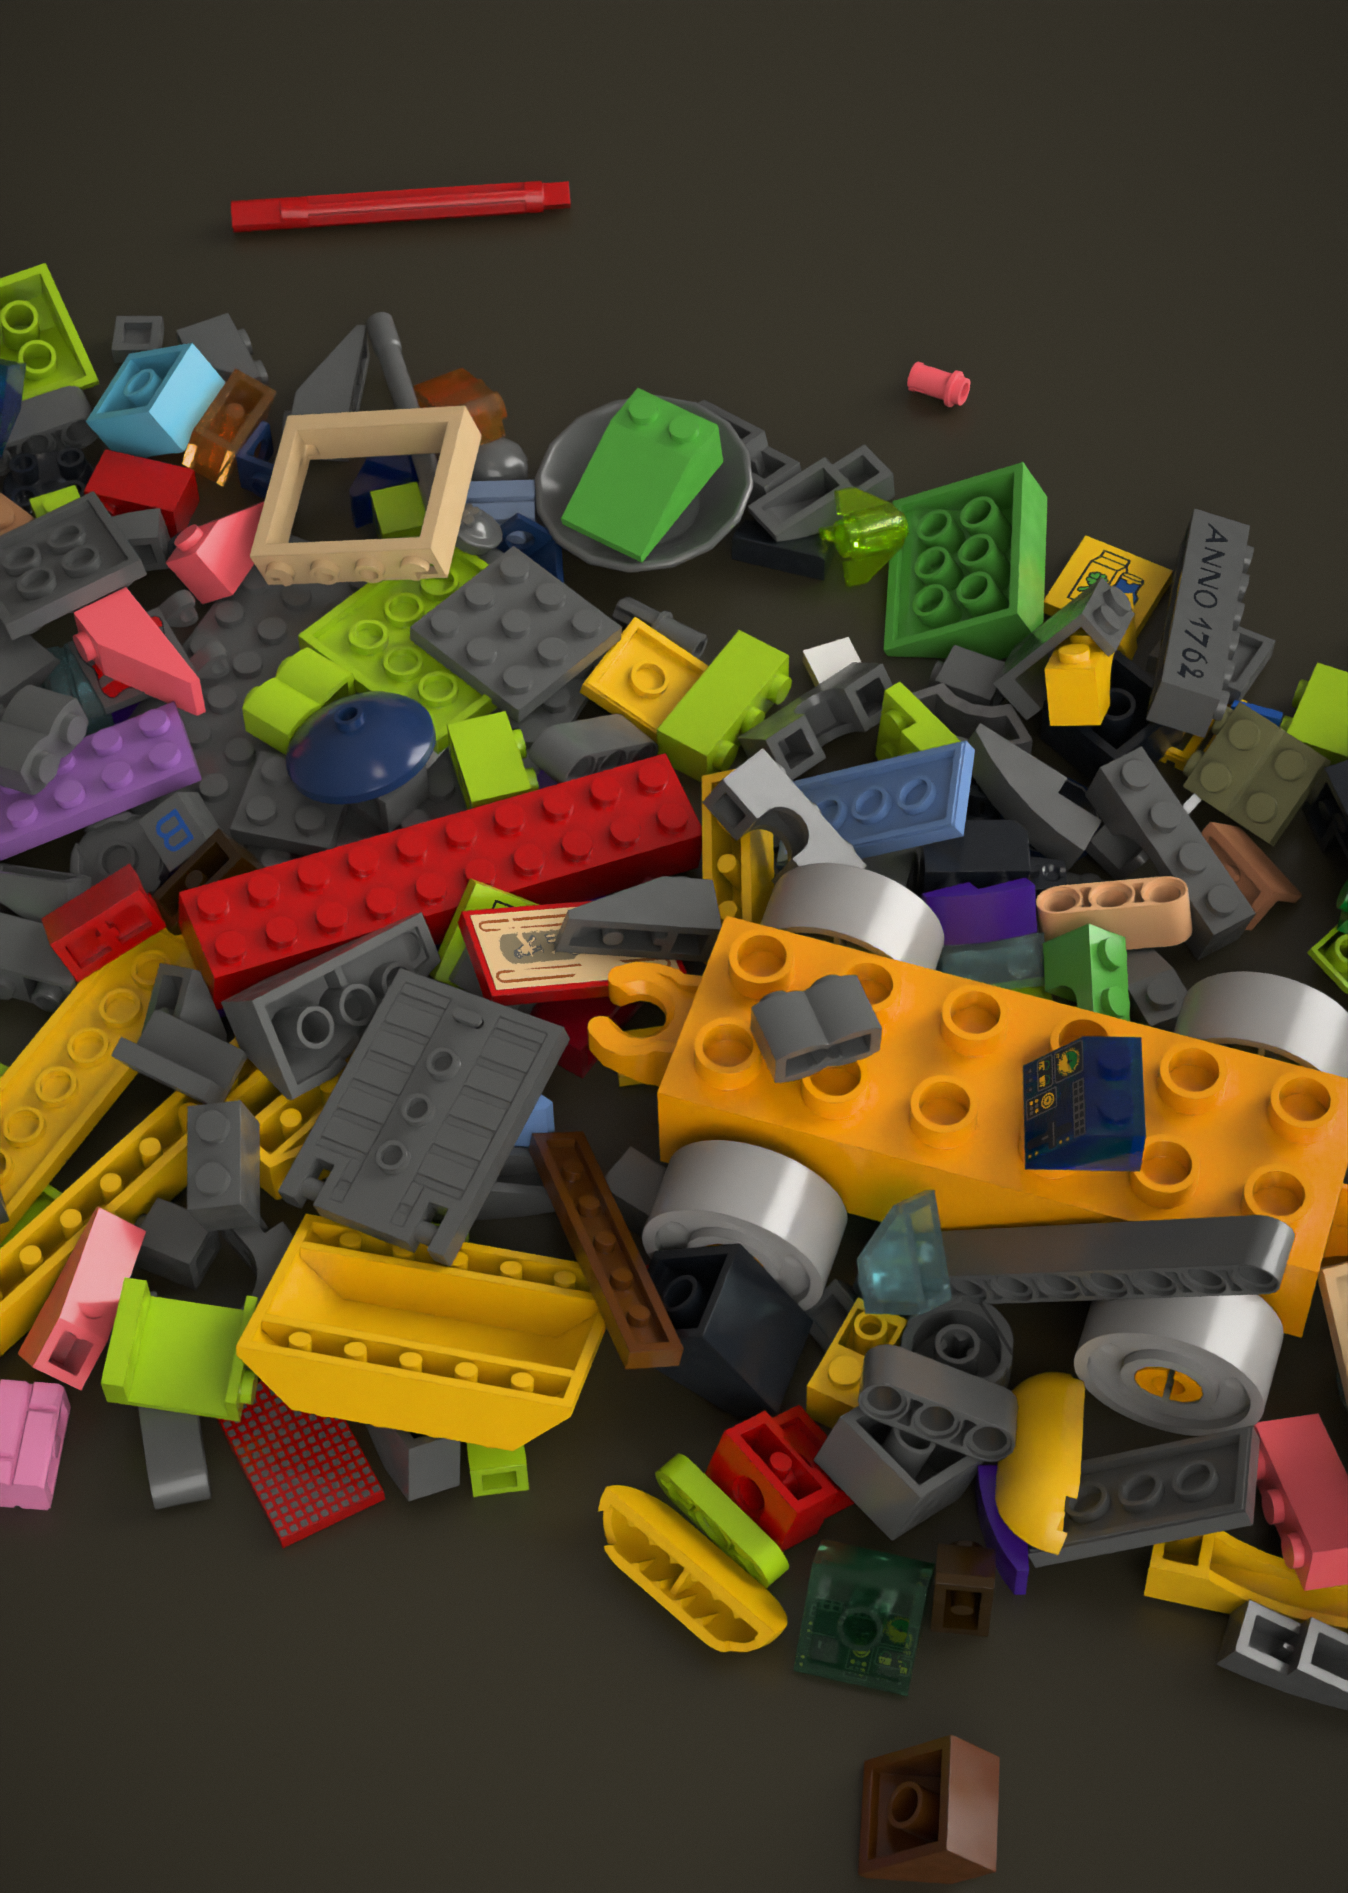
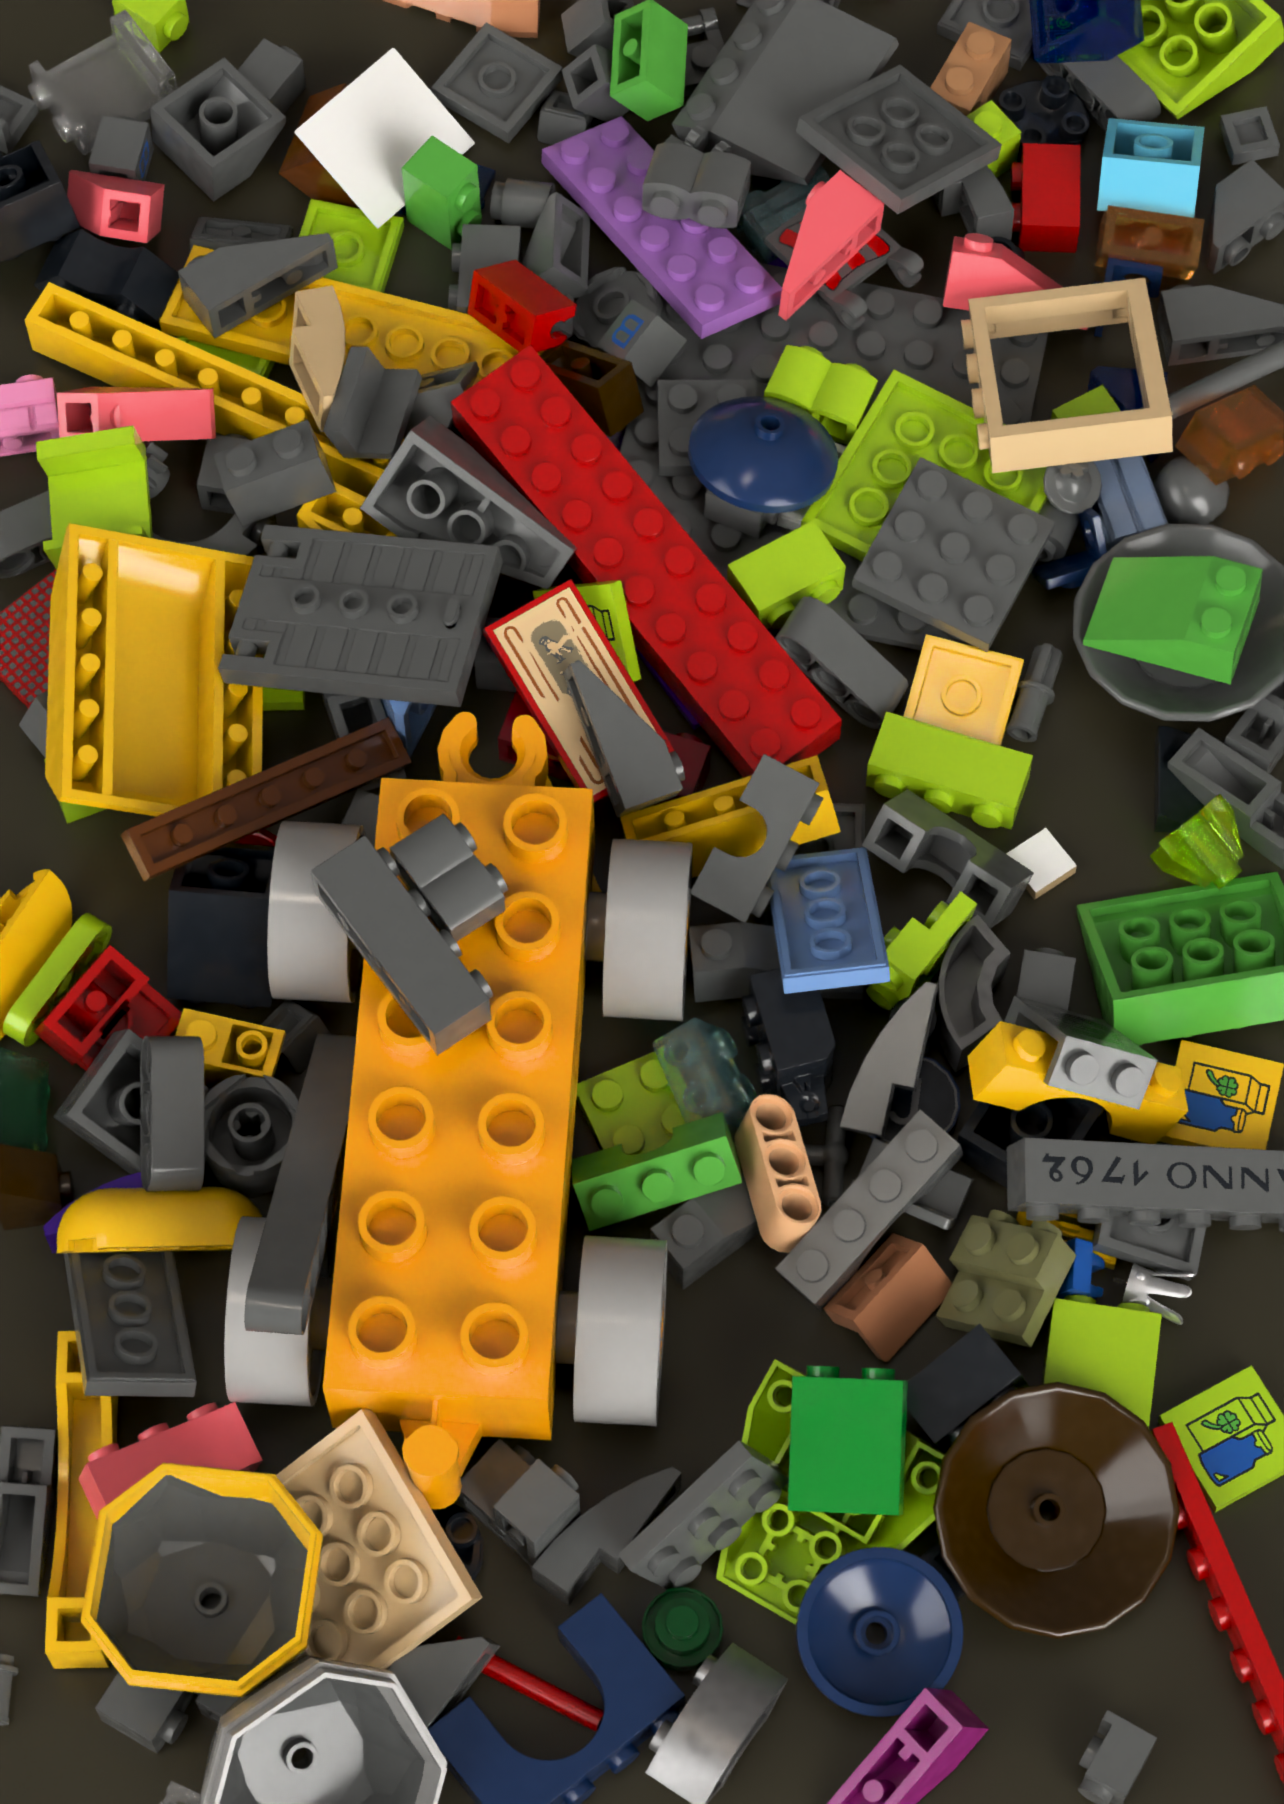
camera: 75 degrees right, 10 degrees up
(94, 1101) = (317, 348): none -> tan slope
(877, 1081) = (402, 944): none -> dark grey brick
(905, 1260) = (297, 1050): clear light blue slope -> none
(986, 913) = (730, 1054): dark purple slope -> none
(1085, 1106) = (419, 1135): clear blue slope -> none
(1275, 684) = (1142, 1283): none -> flat silver piece

